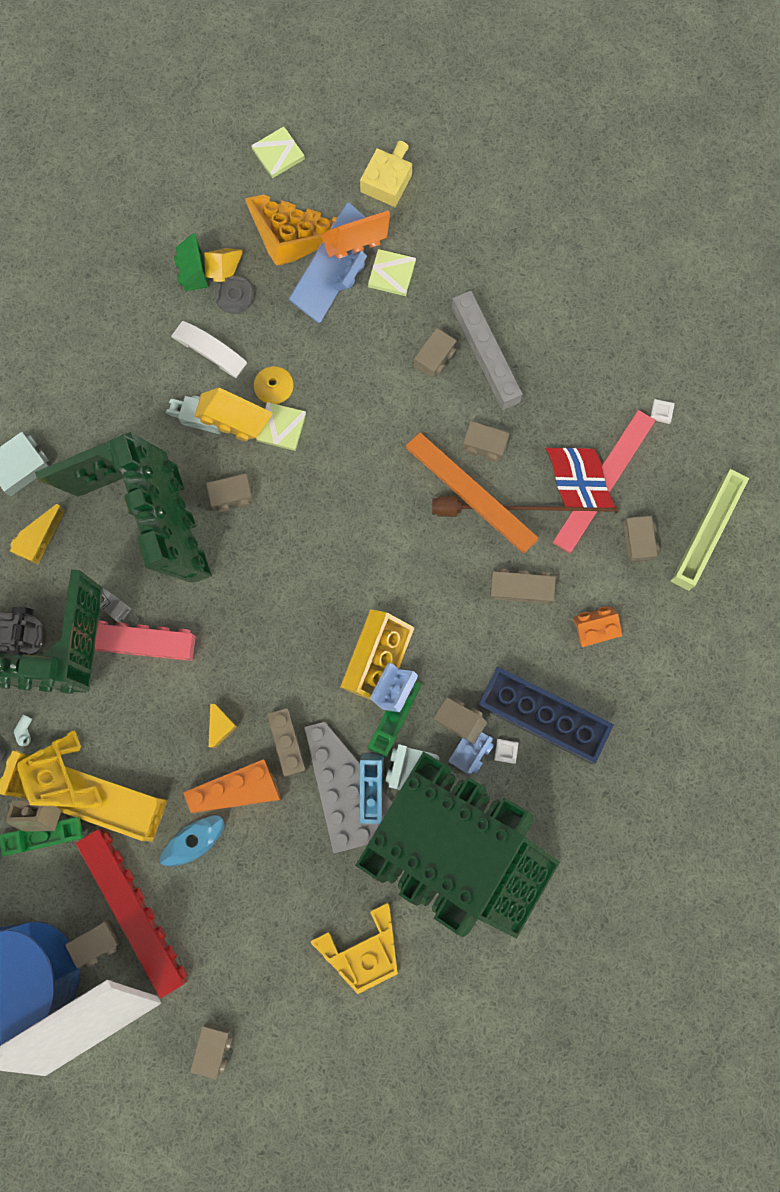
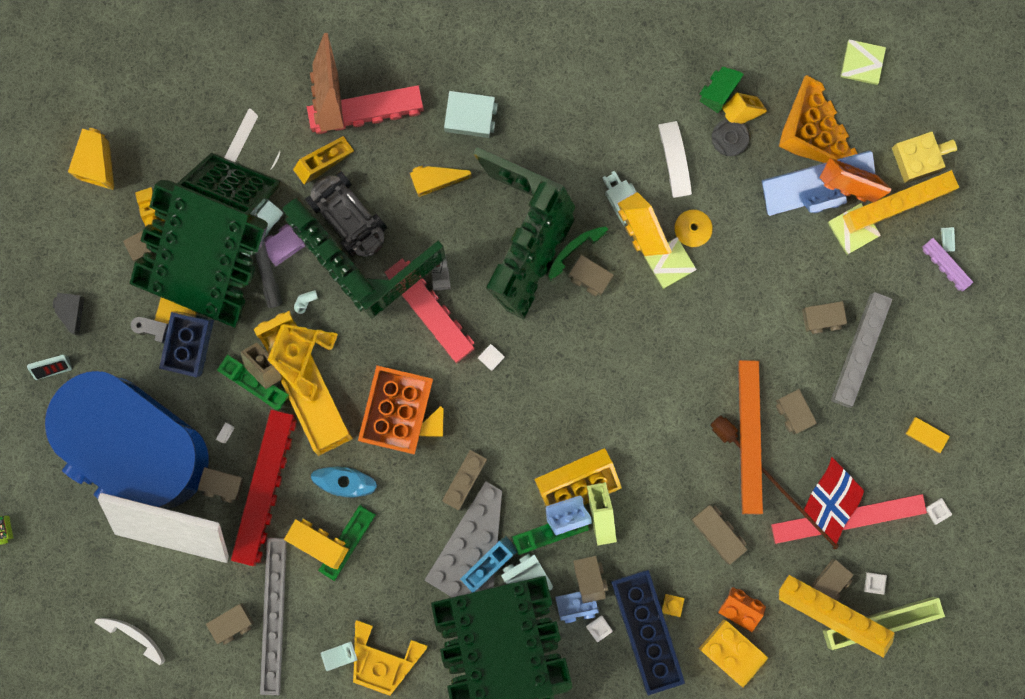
camera: 40 degrees right, 5 degrees up
(57, 899) = (225, 433): none -> white tile
(169, 1142) = (152, 652): none -> white slope
(177, 743) = (395, 410): none -> orange slope
(201, 461) = (593, 235): none -> green slope
(215, 629) = (491, 357): none -> white tile
(218, 912) = (317, 543): none -> yellow brick
(242, 787) = (406, 479): orange wedge -> none
(242, 1008) = (273, 616): none -> light grey tile
(243, 887) = (351, 536): none -> green tile
(325, 985) = (338, 656): none -> light aqua bracket
(405, 219) = (900, 201): none -> yellow brick
(419, 660) = (601, 513): none -> yellowish green slope
(467, 215) = (948, 239): none -> light aqua piece
(485, 233) = (947, 264): none -> lavender piece
(543, 676) = (672, 605): none -> yellow plate
(597, 365) = (927, 435): none -> yellow tile
(624, 665) = (733, 653): none -> yellow brick
(672, 508) = (875, 583): none -> white tile
(672, 556) = (836, 616): none -> yellow brick

